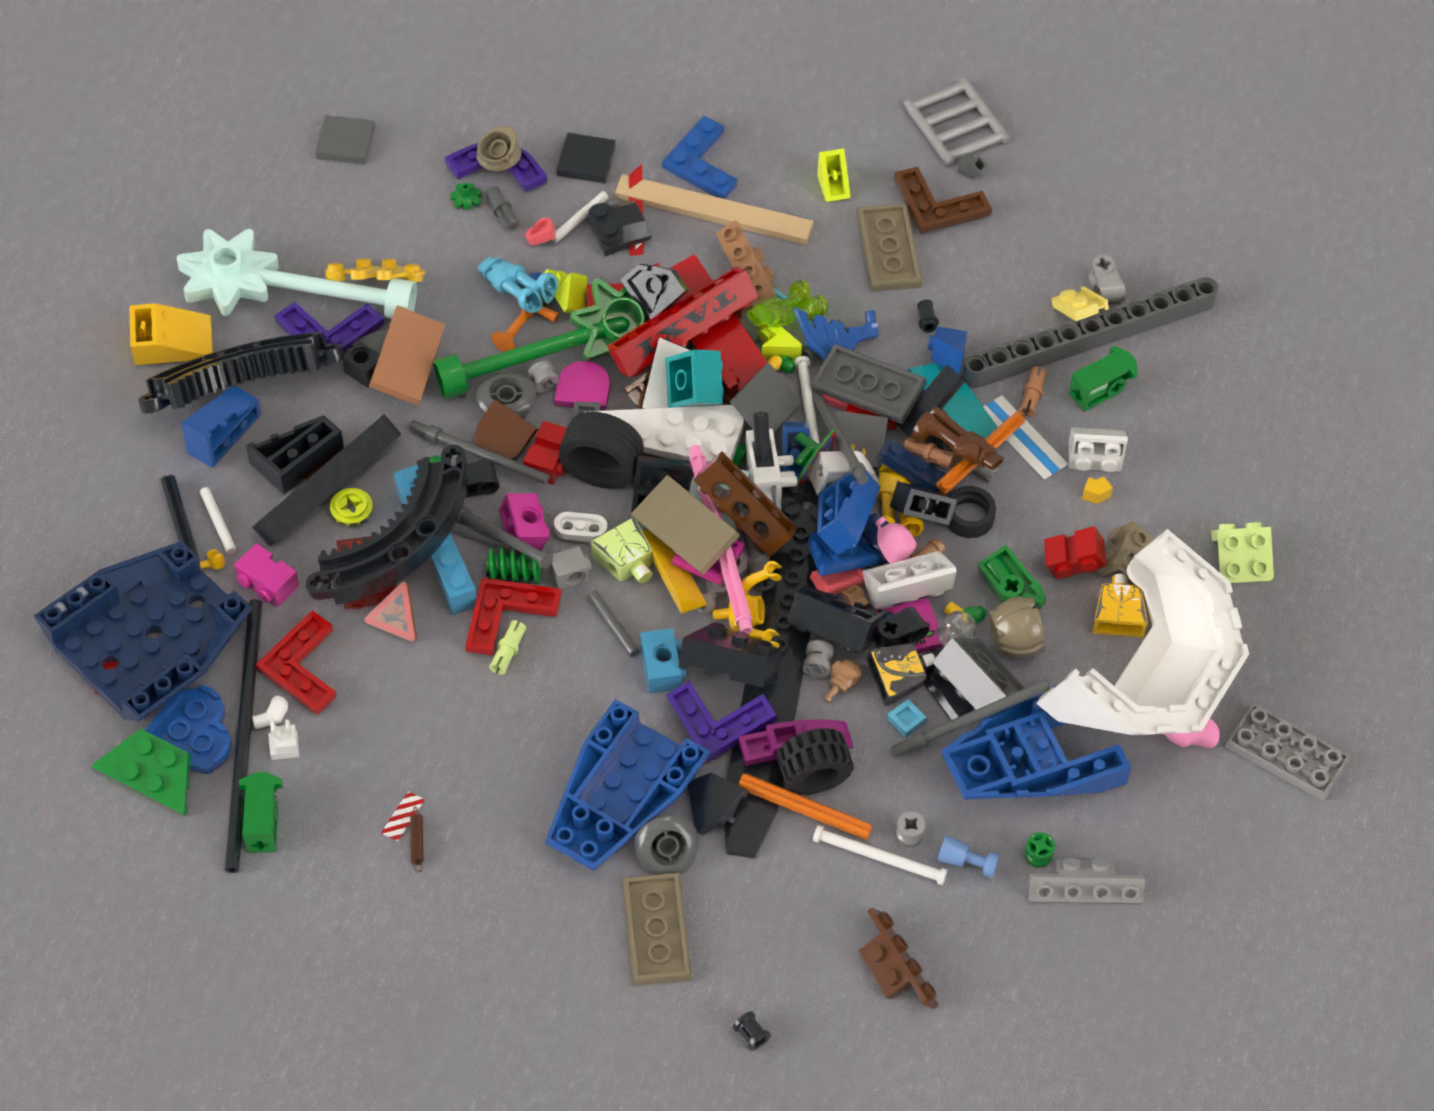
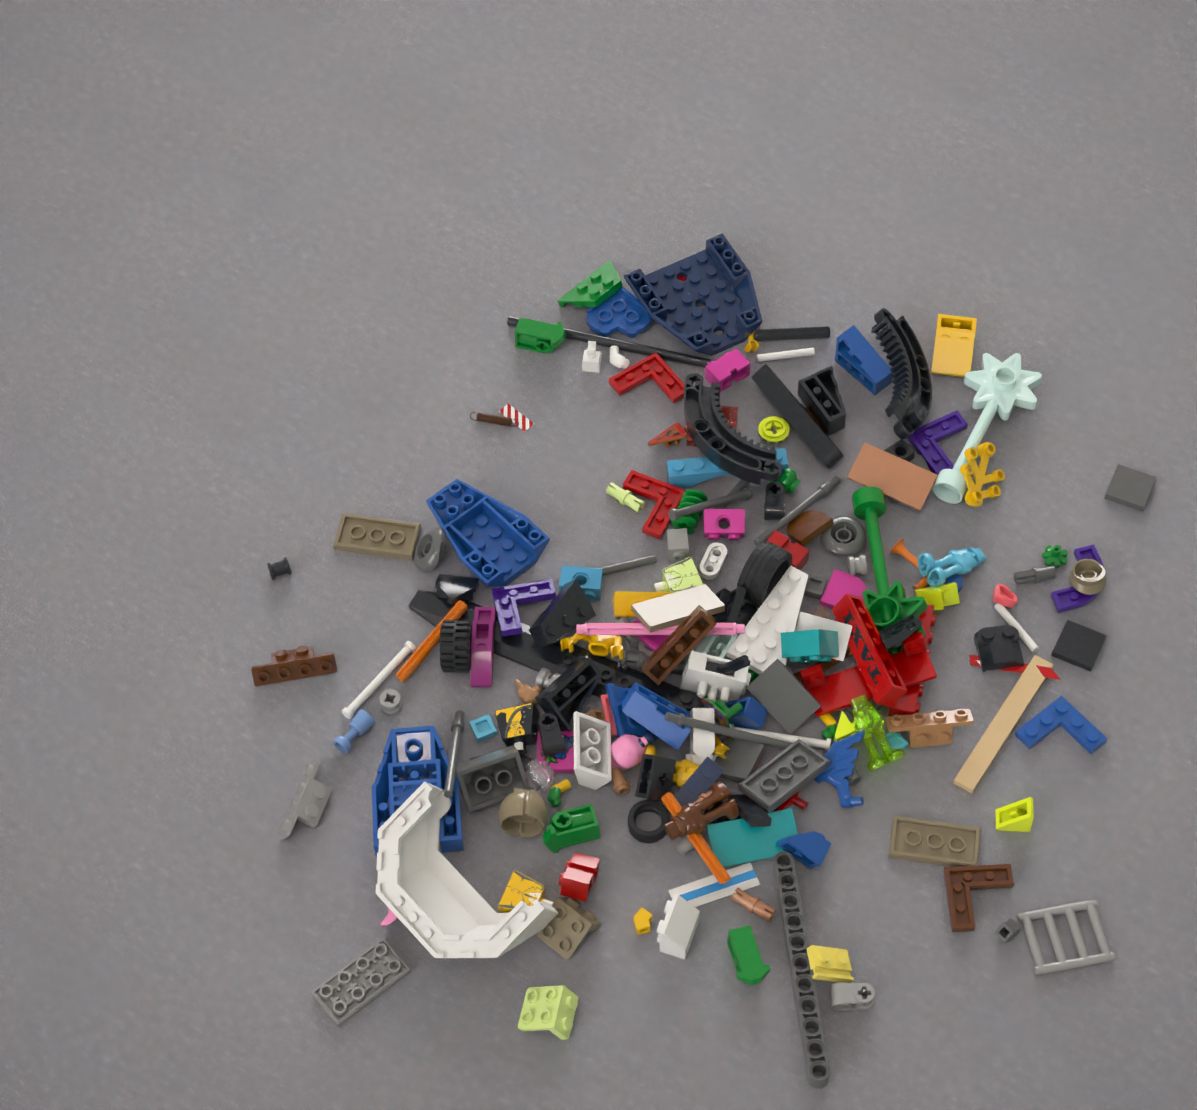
camera: 110 degrees right, 0 degrees up
(928, 321) = (851, 847): black pin -> none
(1039, 843) = (342, 774): green wheel -> none

